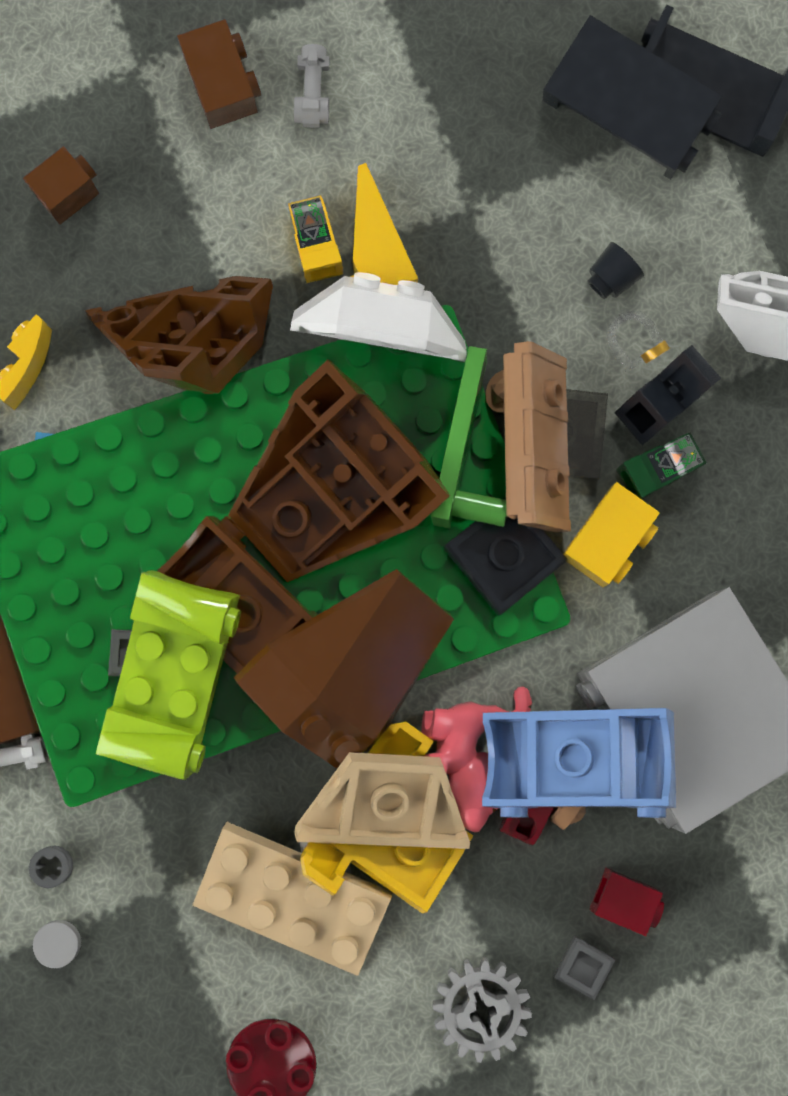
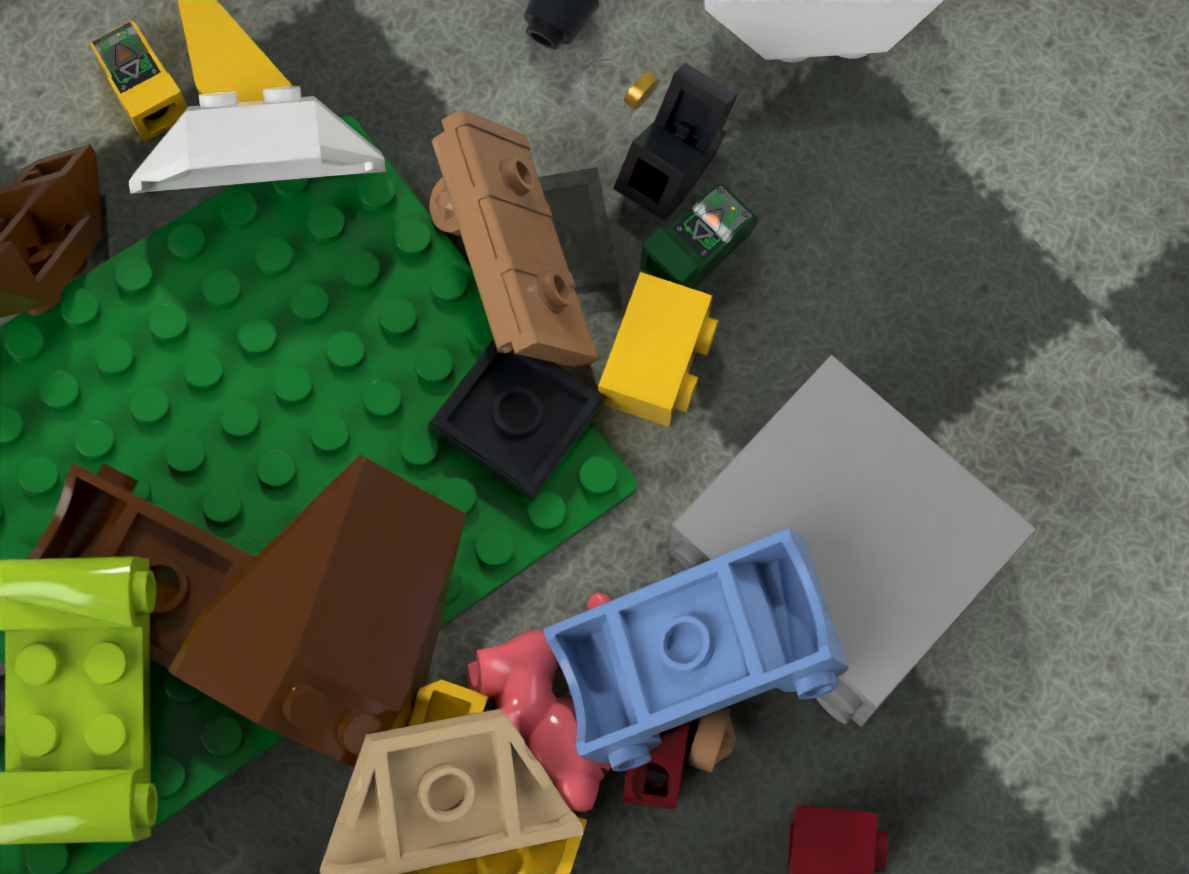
camera: 15 degrees left, 10 degrees down
(333, 479) = (241, 376): reddish brown wedge -> none
(461, 503) = (415, 358): bright green piece -> none

